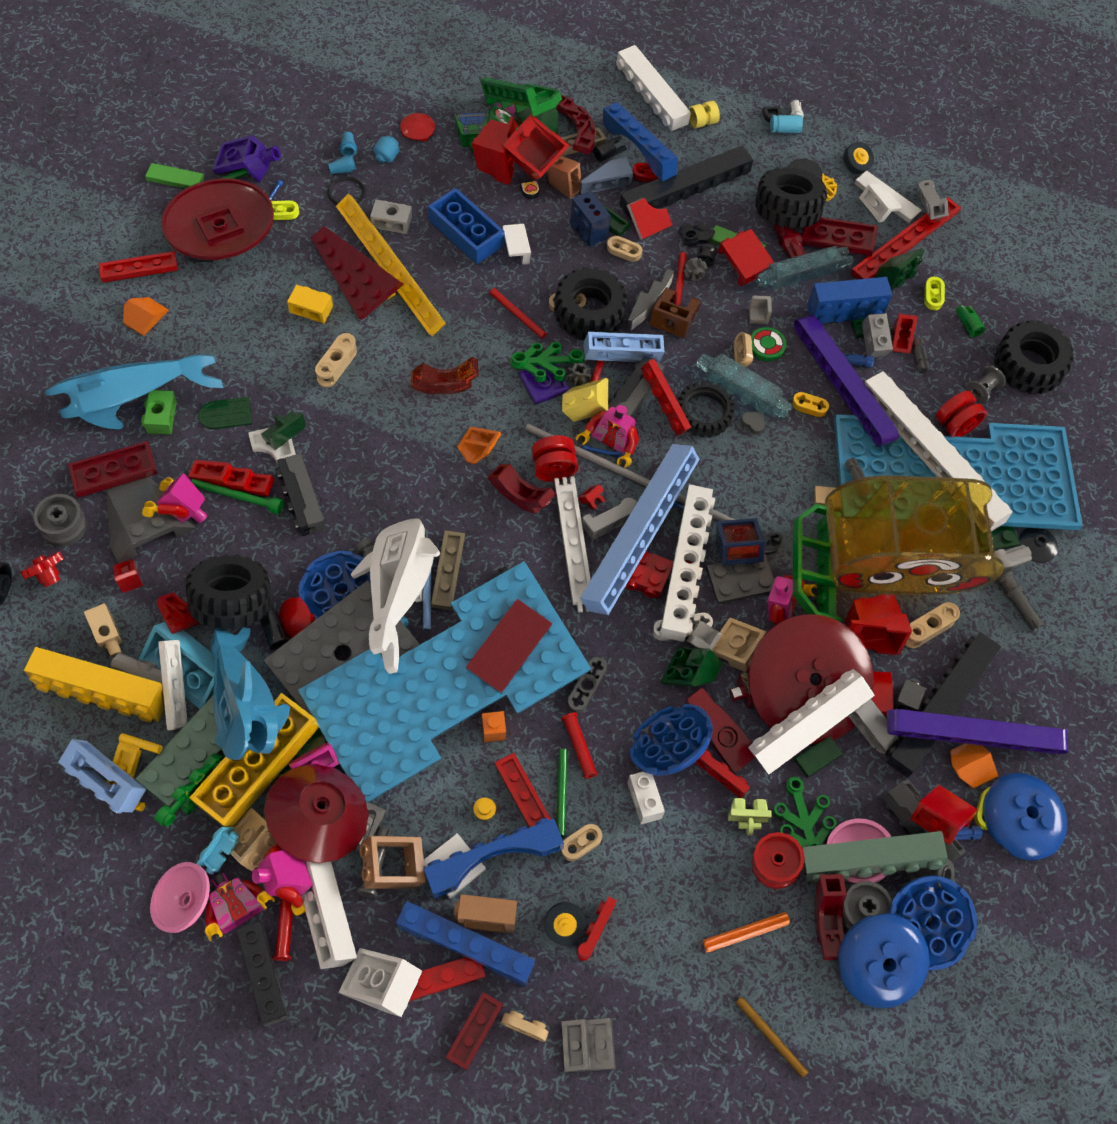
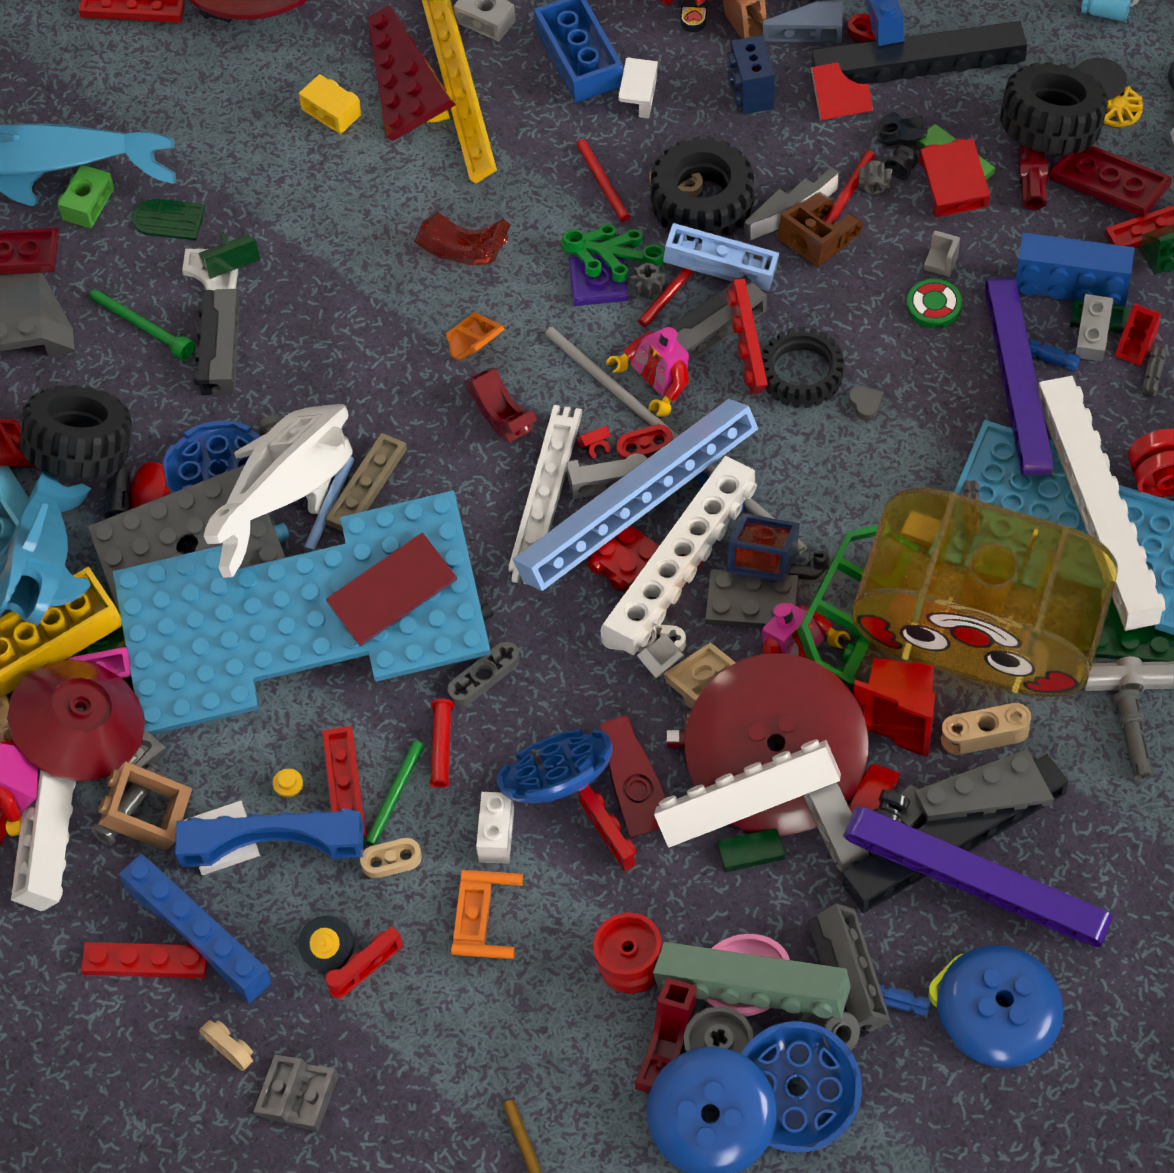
camera: 30 degrees right, 5 degrees down
(142, 314) = (114, 68): orange slope -> none
(179, 500) = (63, 309): dark pink torso -> none
(233, 478) = (143, 300): red slope -> none
(343, 351) = (333, 183): tan piece -> none
(381, 981) = (76, 936): white slope -> none
(474, 1031) = (164, 1030): dark red plate -> none
(486, 913) = (233, 899): medium nougat window -> none
(494, 726) = (339, 688): orange brick -> none
(554, 458) = (560, 377): red wheel -> none
(586, 400) = (638, 314): light yellow slope -> none
(617, 224) = (790, 86): dark green tile -> none
(617, 454) = (618, 378): blue hinge -> none
(624, 249) = (790, 127): tan plate -> none
(625, 489) = (644, 441): none -> red plate
(656, 866) = (473, 914): none -> orange plate
(691, 667) = (629, 688): dark green slope -> none
(743, 349) = (895, 296): tan plate -> none
(745, 385) = (873, 349): clear light blue hinge -> none
(746, 932) = (554, 1028): orange axle -> none
(747, 817) = (621, 894): yellowish green hips -> none
(804, 821) = (693, 923): green plant -> none
(805, 268) = (1036, 211): clear light blue hinge -> none
(810, 404) = (959, 396): yellow beam -> none
(906, 700) = (892, 804): none -> black wheel
(944, 813) = (876, 957): red panel -> none
(957, 668) = (994, 786): none -> dark grey wing
(973, 764) = (959, 922): orange slope -> none

